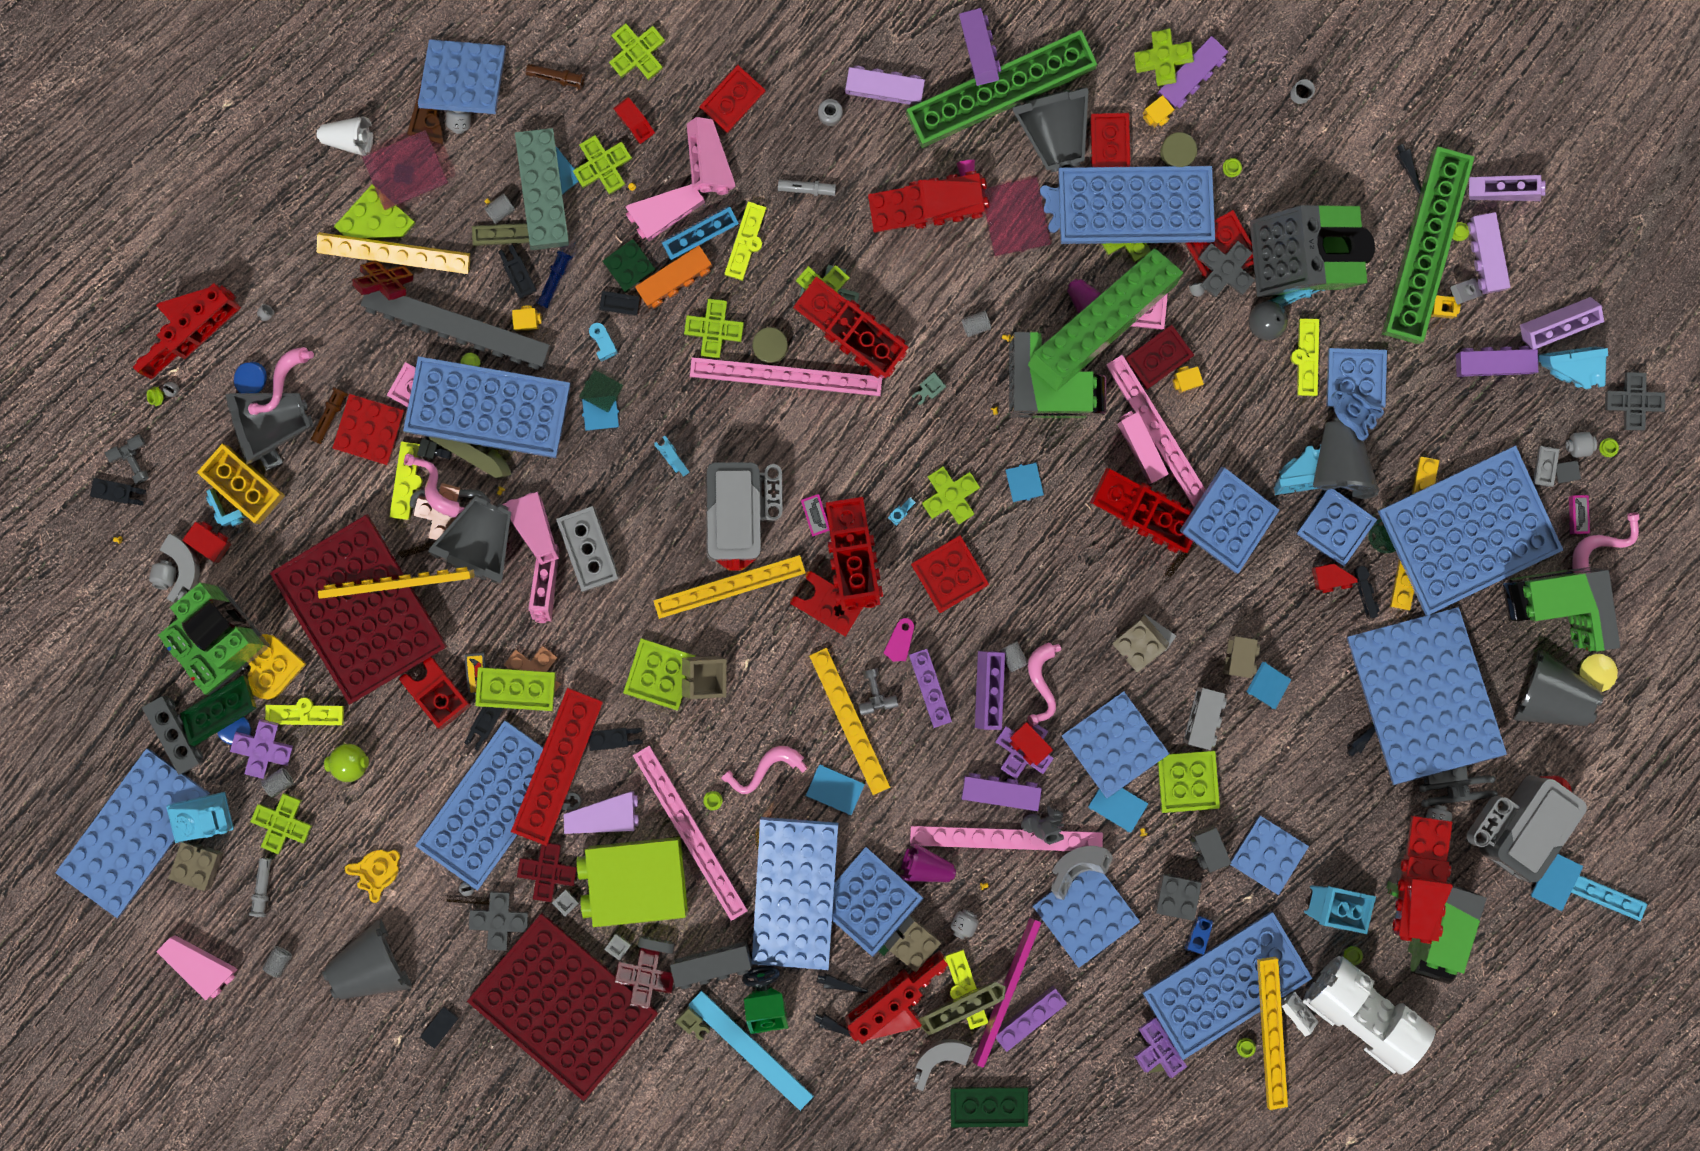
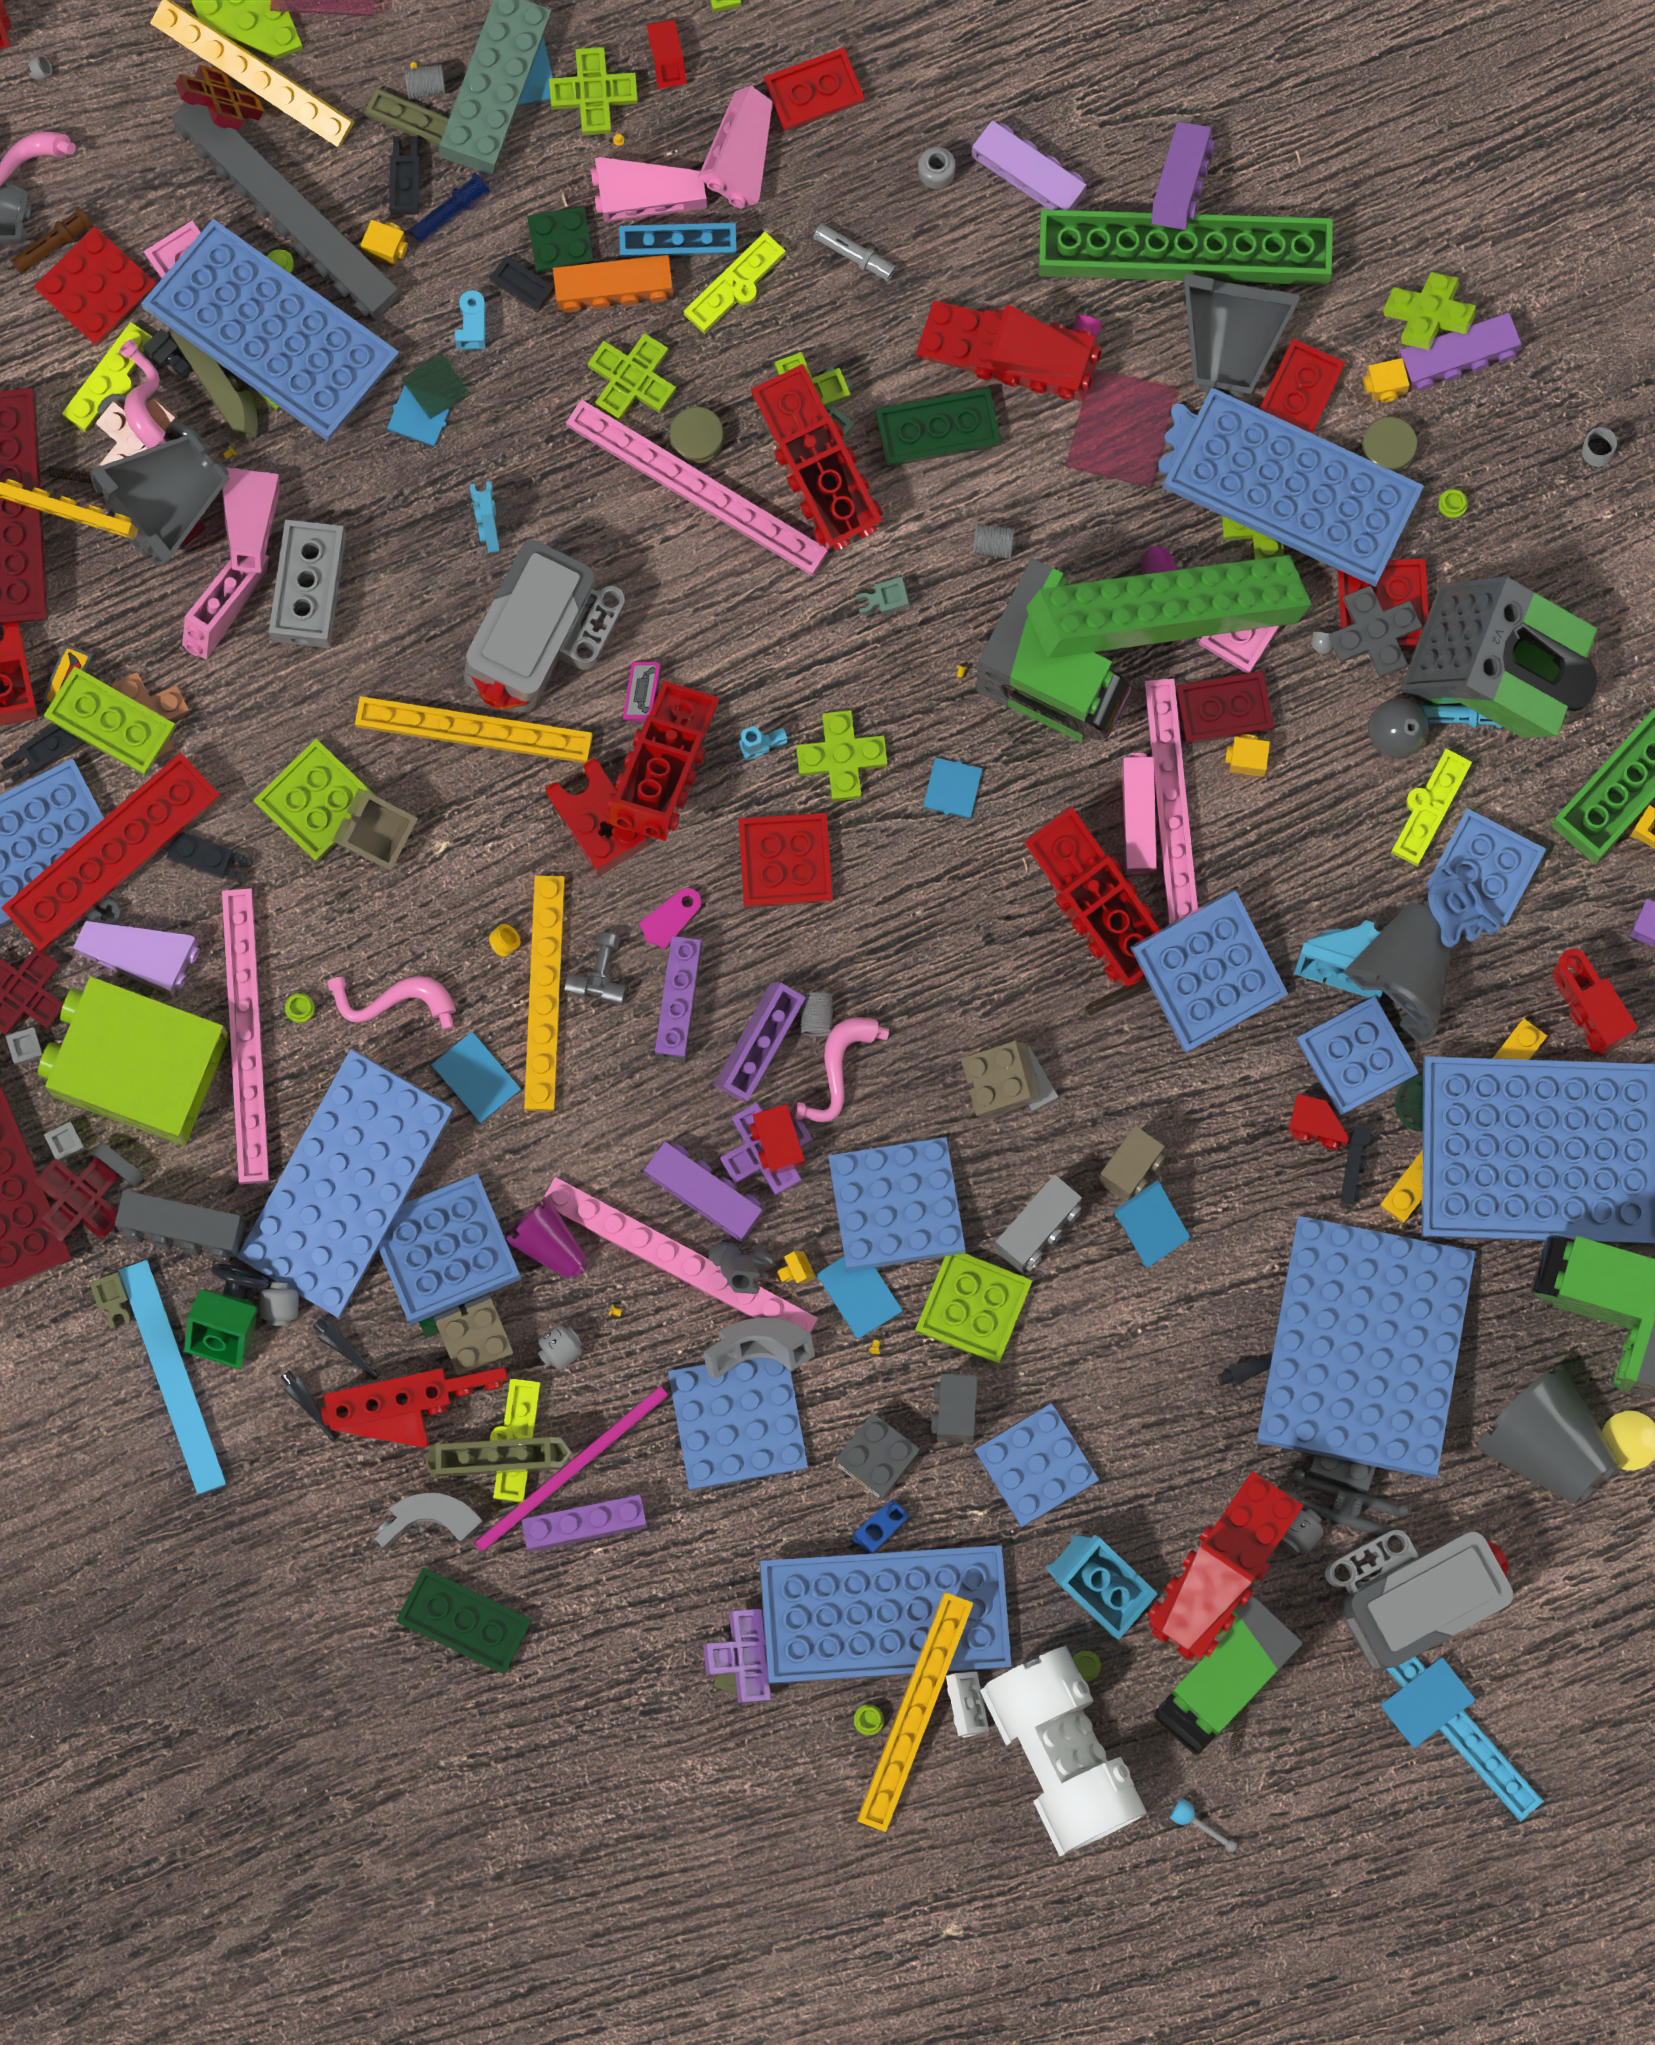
camera: 25 degrees right, 10 degrees down
(791, 979) = (278, 1304): none -> light grey head
(811, 702) = (504, 940): none -> yellow tile
(909, 270) = (938, 427): none -> dark green plate
(1077, 810) = (797, 1268): none -> yellow tile
(1449, 1012) = (1184, 1814): none -> hinge
(1459, 430) = (1593, 1003): none -> red brick

